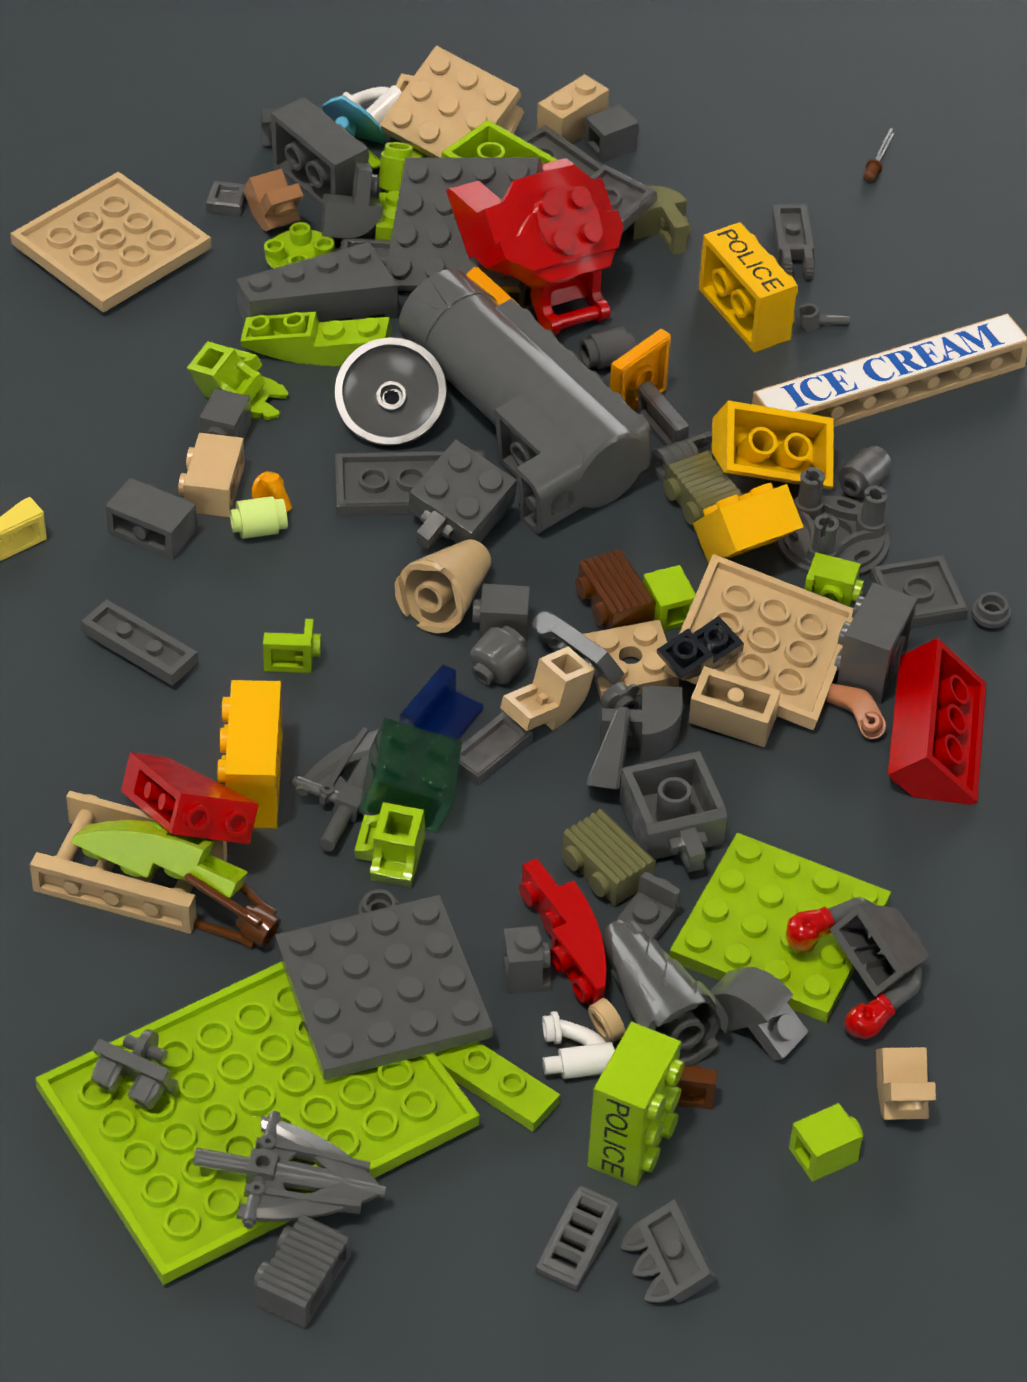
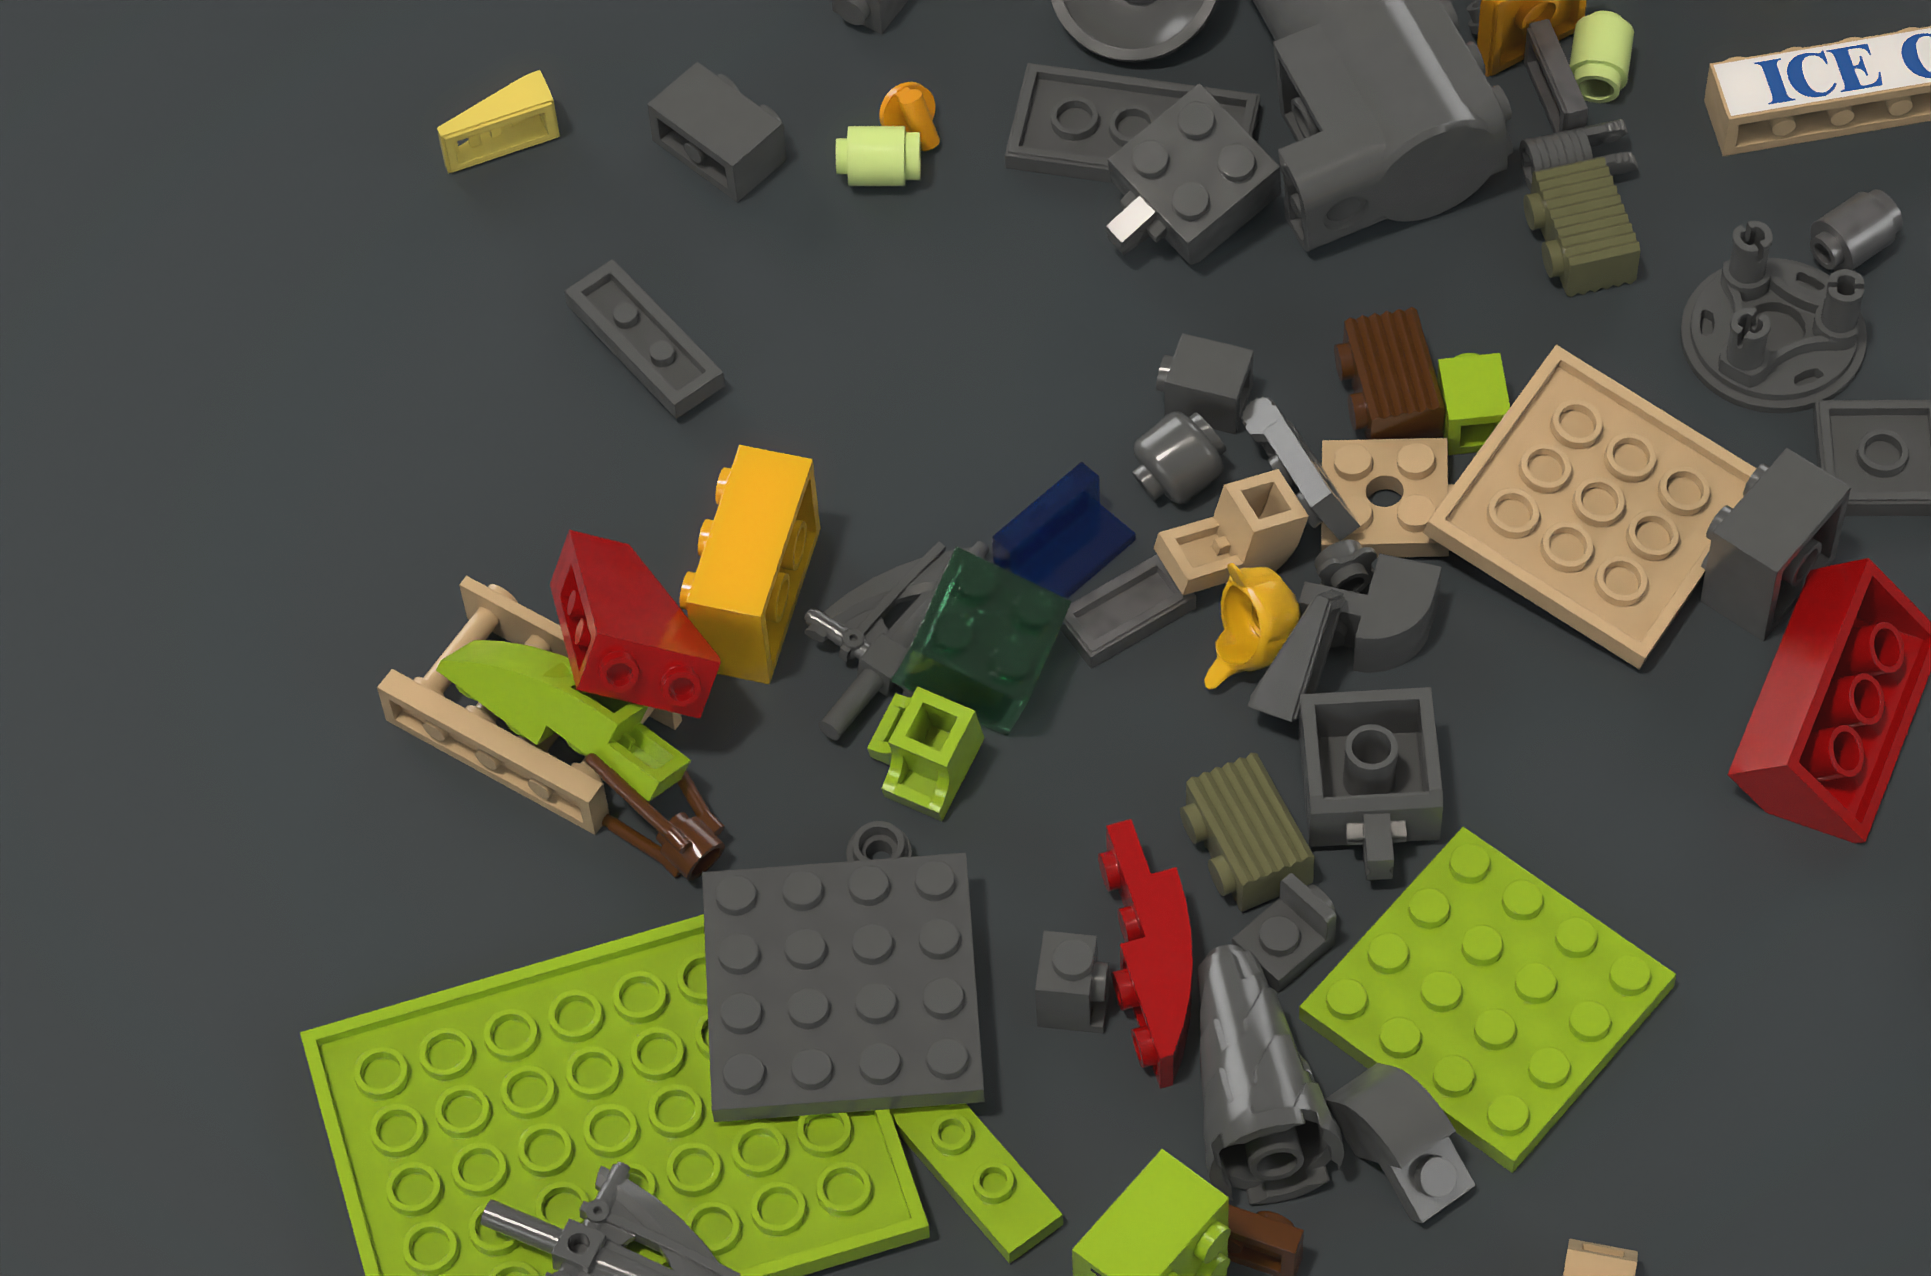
camera: 20 degrees right, 10 degrees up
(150, 1077) = (411, 1039): dark grey hips -> none
(213, 473) = (830, 70): tan brick -> none
(291, 651) = (867, 396): lime bracket -> none
(442, 585) = (1127, 320): tan cone -> none
(576, 737) = (1256, 621): none -> yellow hair
(577, 1060) = (1105, 1162): white plant -> none
(606, 1020) = (1166, 1107): tan tile -> none
(685, 396) = (1601, 55): none -> yellowish green brick
(706, 647) = (1484, 513): black slope -> none
(734, 706) = (1516, 613): tan brick -> none
(747, 521) = (1627, 302): yellow brick -> none
(772, 442) = (1712, 166): yellow slope -> none
(834, 579) = (1745, 418): lime brick -> none
(862, 706) = (1728, 646): nougat arm -> none
(878, 946) = (1618, 1075): dark grey torso -> none

